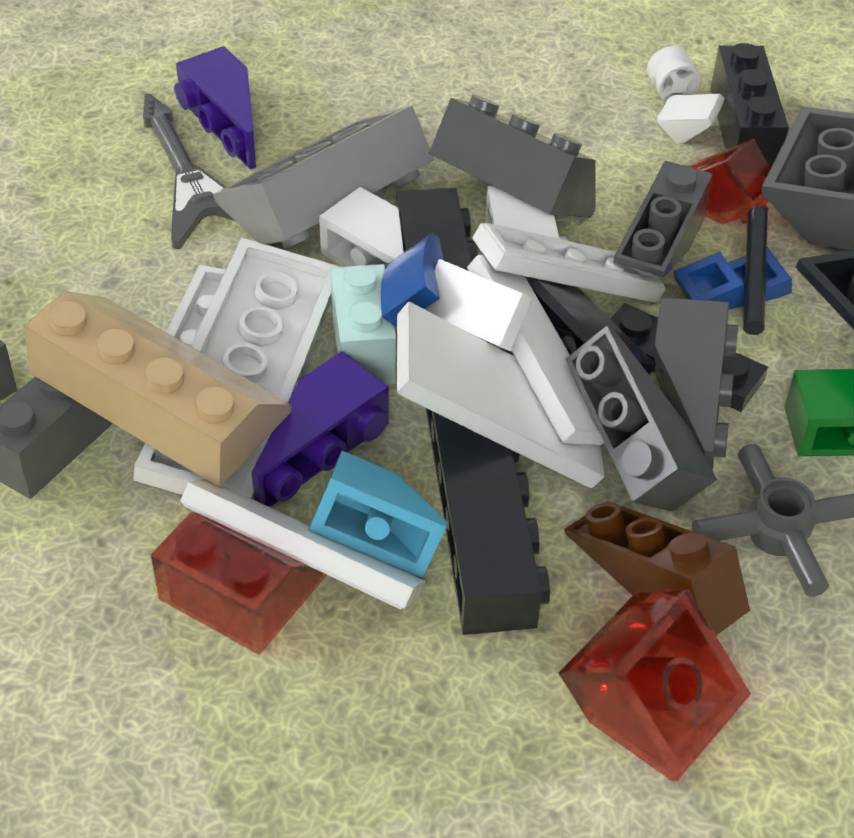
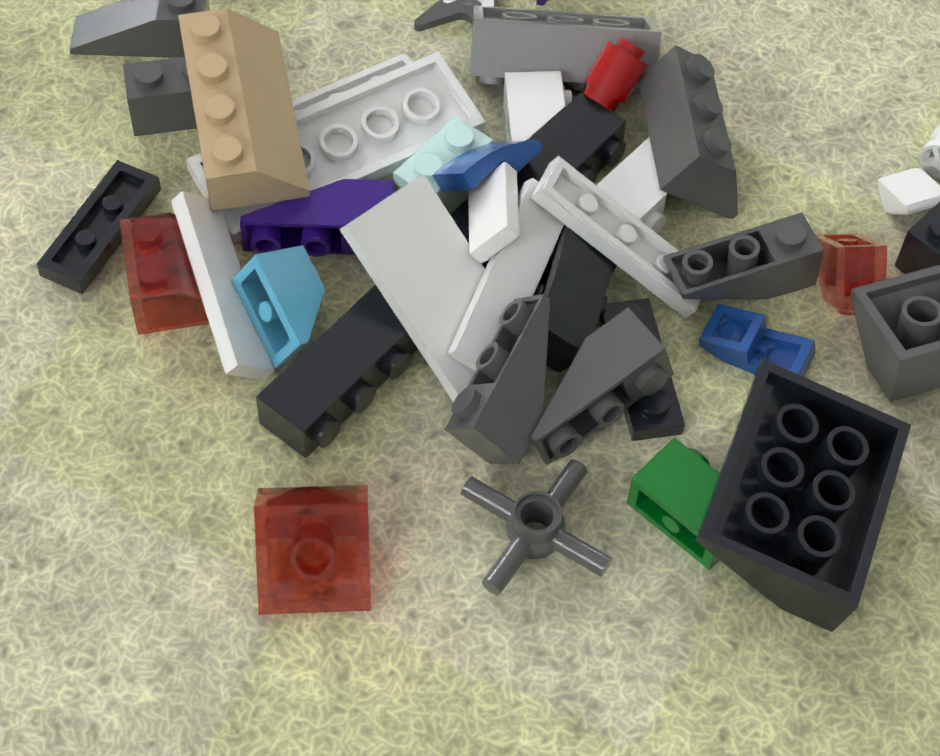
camera: 45 degrees right, 10 degrees up
(111, 592) = (95, 228): none -> black plate
(410, 156) = (615, 74): none -> red brick
(660, 556) = (413, 488): reddish brown slope -> none
(755, 271) = (776, 348): black bar -> none

